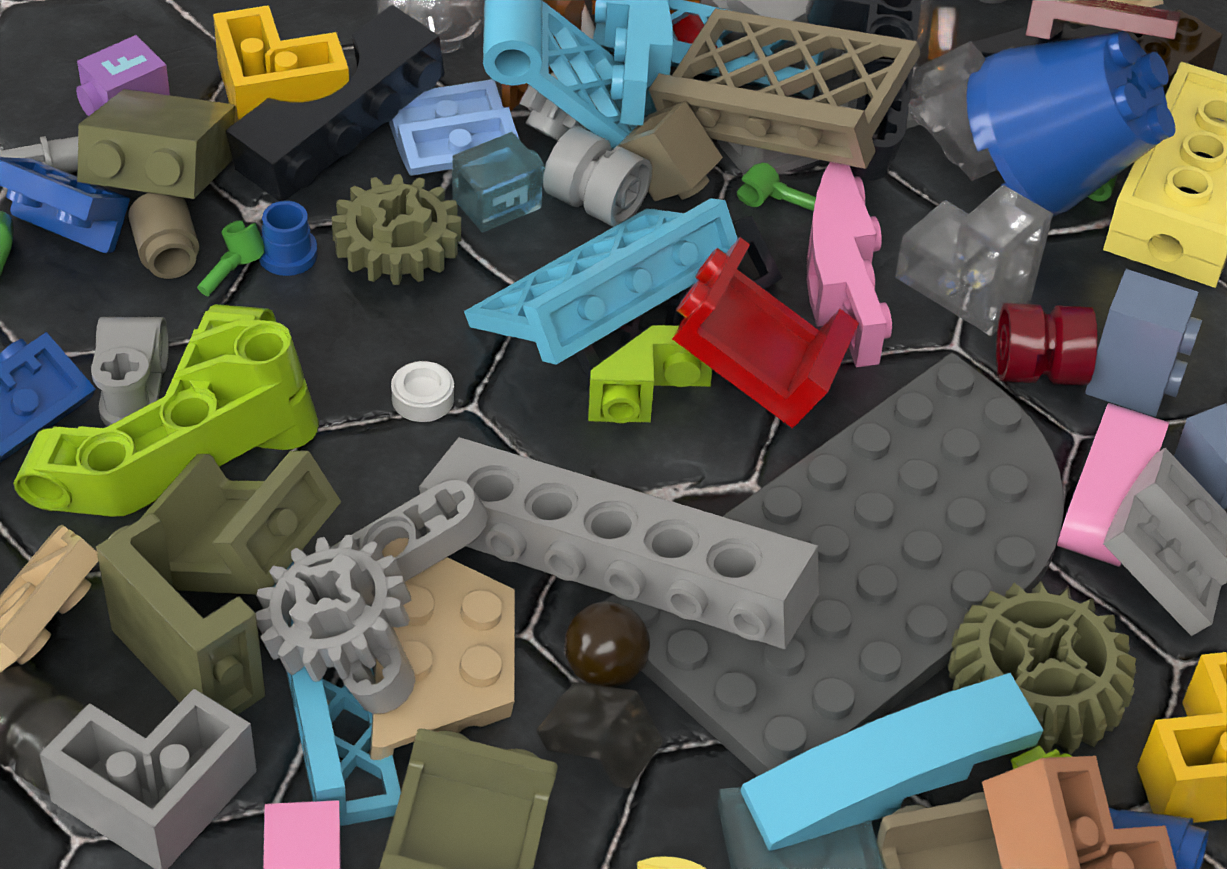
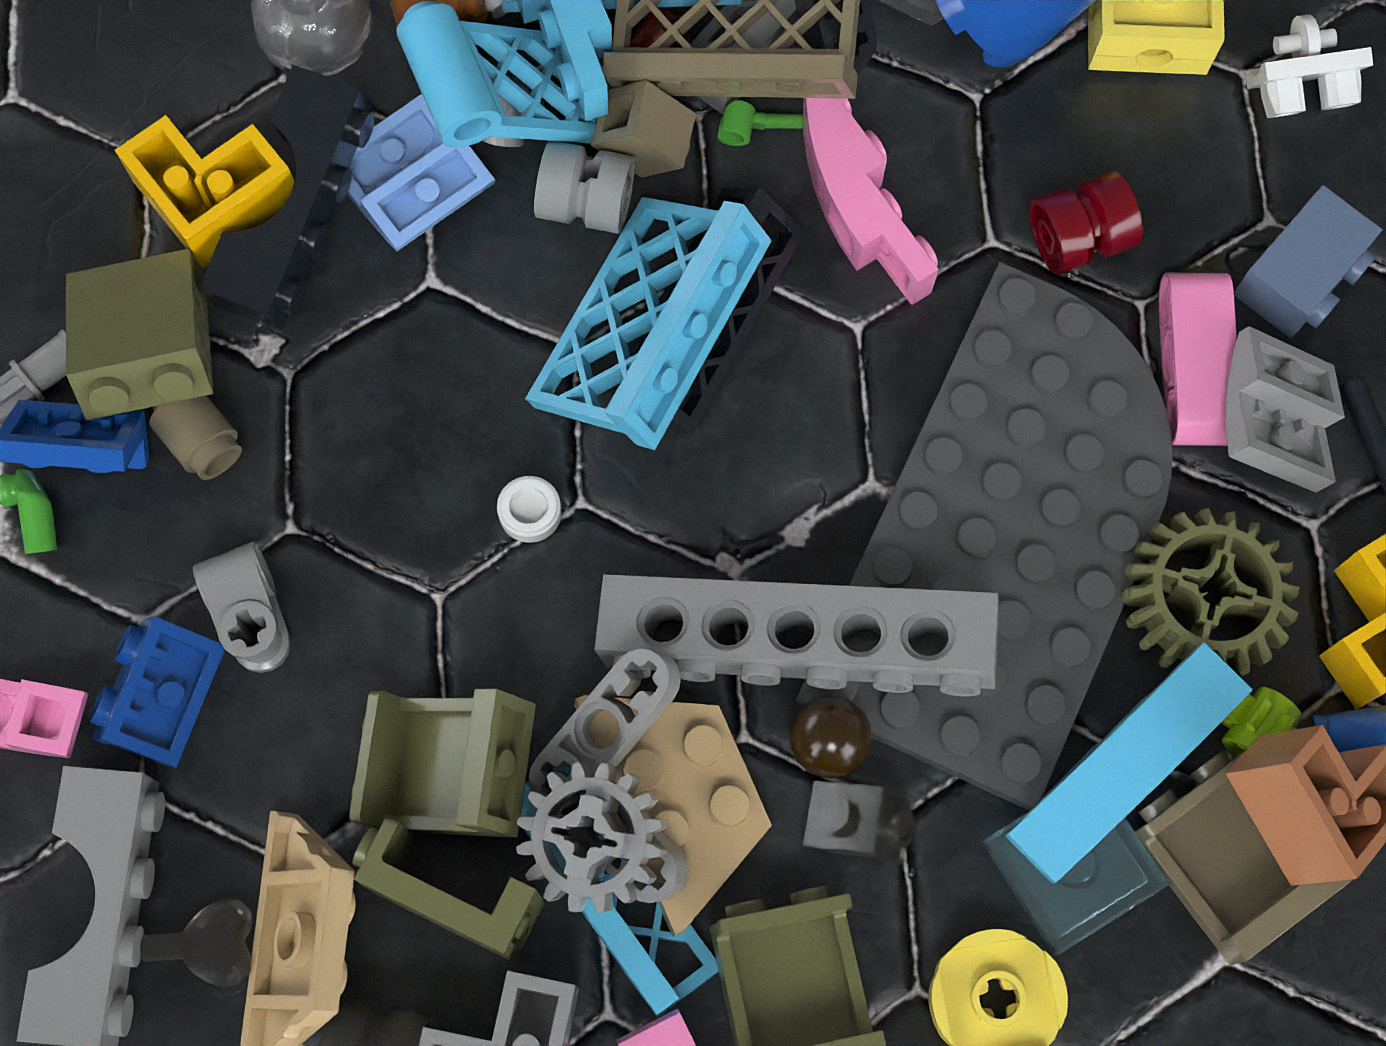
camera: 20 degrees left, 25 degrees up
(120, 67) = (50, 248): medium lavender brick -> none
(229, 394) = (354, 603): lime connector -> none
(244, 247) = (279, 413): bright green hand -> none
(287, 239) = (326, 401): blue piece -> none
(396, 229) = (393, 320): olive gear -> none
(497, 181) = (489, 228): clear light blue brick -> none
(625, 380) = (724, 428): lime slope -> none
(759, 339) = (833, 336): red panel -> none
(977, 257) = (984, 149): clear brick -> none
(1142, 341) = (1184, 193): sand blue brick -> none

